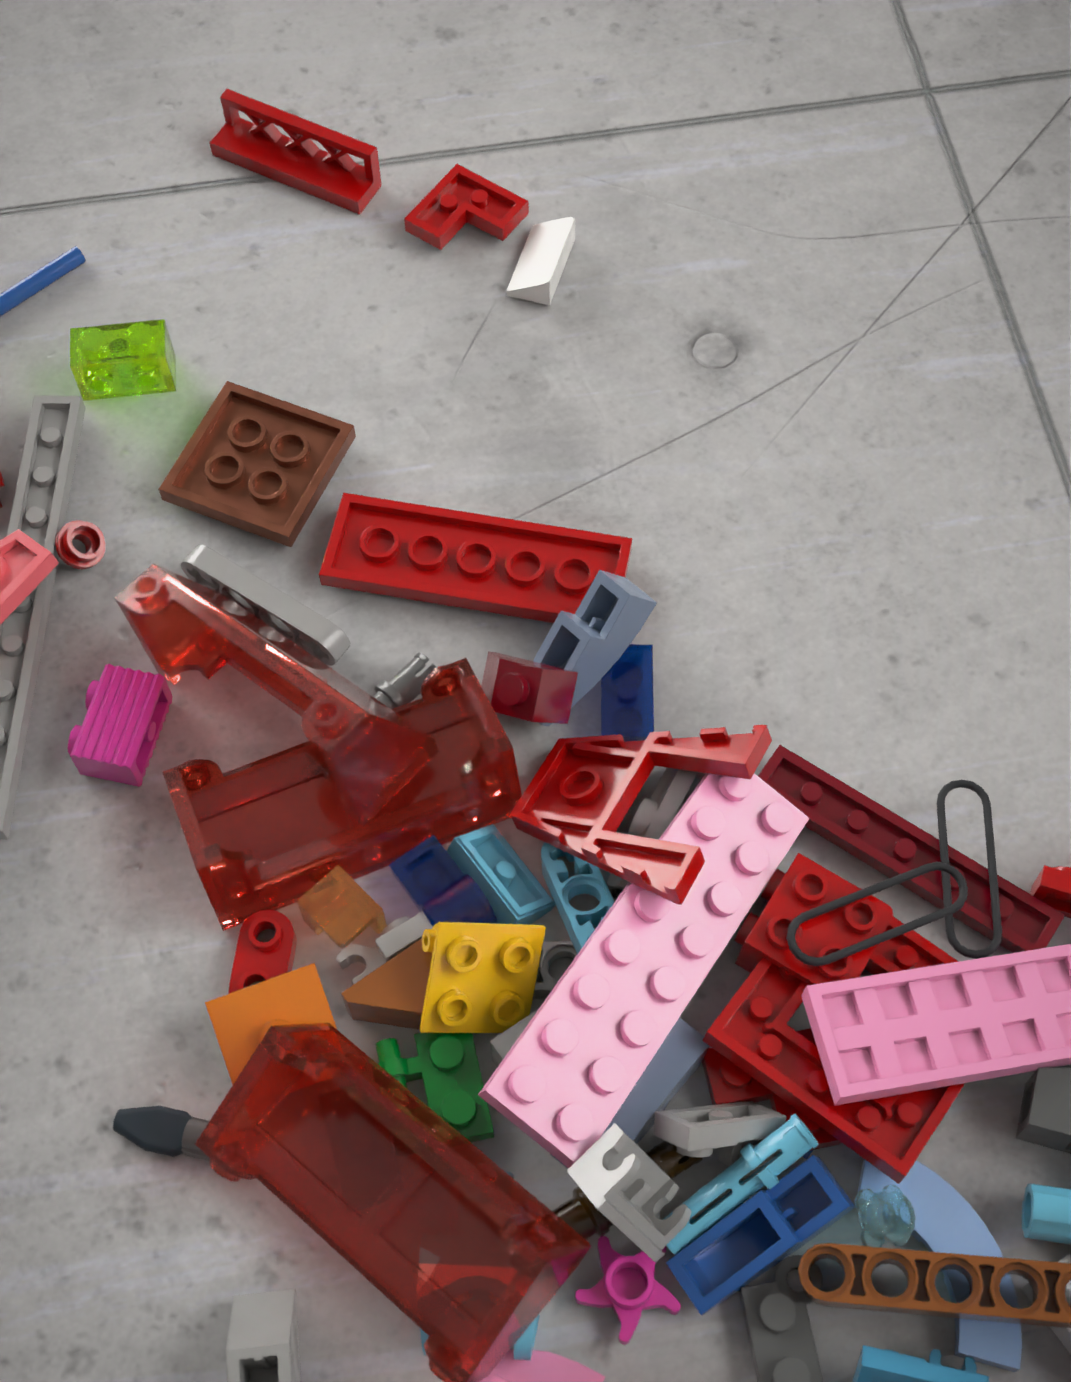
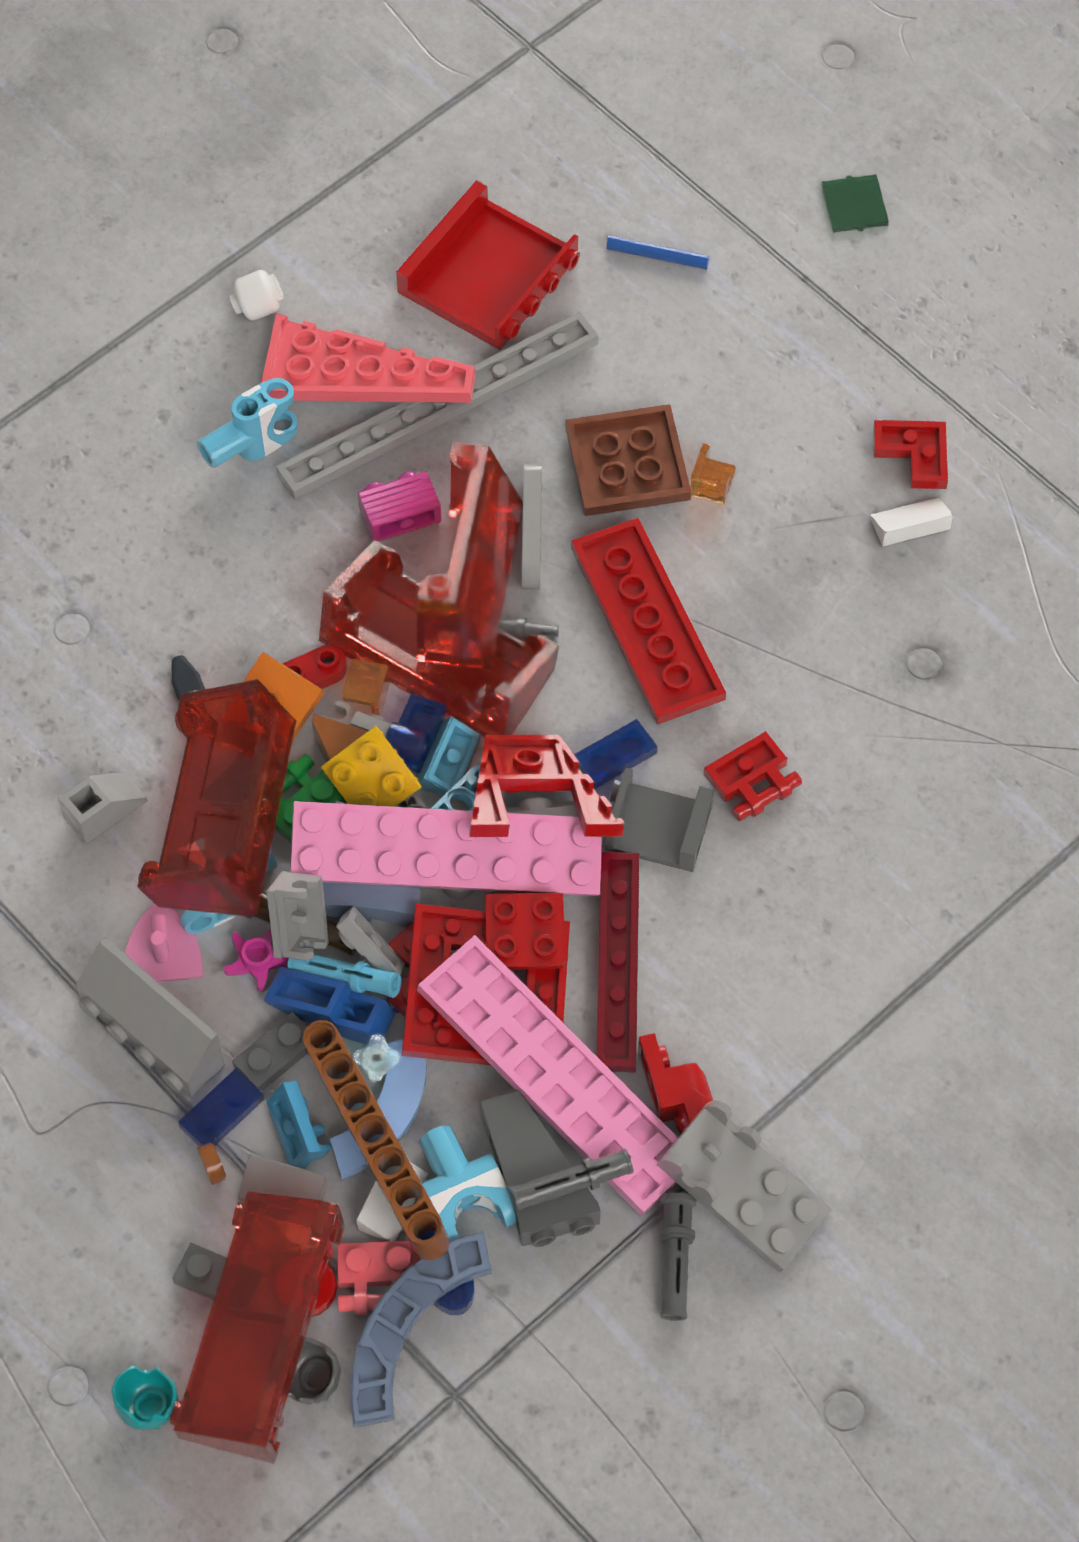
camera: 55 degrees right, 0 degrees up
(89, 535) = (510, 402): red plate -> none
(123, 359) = (641, 339): clear neon green brick -> none
(128, 98) = (854, 203): none -> clear green piece
(296, 158) = (879, 328): red fence -> none
(347, 397) = (711, 477): none -> clear orange panel
(528, 689) = (567, 692): dark red slope -> none
(597, 631) = (624, 707): sand blue slope -> none
(735, 577) = (747, 766): none -> red plate
(752, 687) = (659, 823): none -> dark grey panel
(963, 892) = (603, 967): black piece -> none
(992, 869) = (638, 1009): black piece -> none

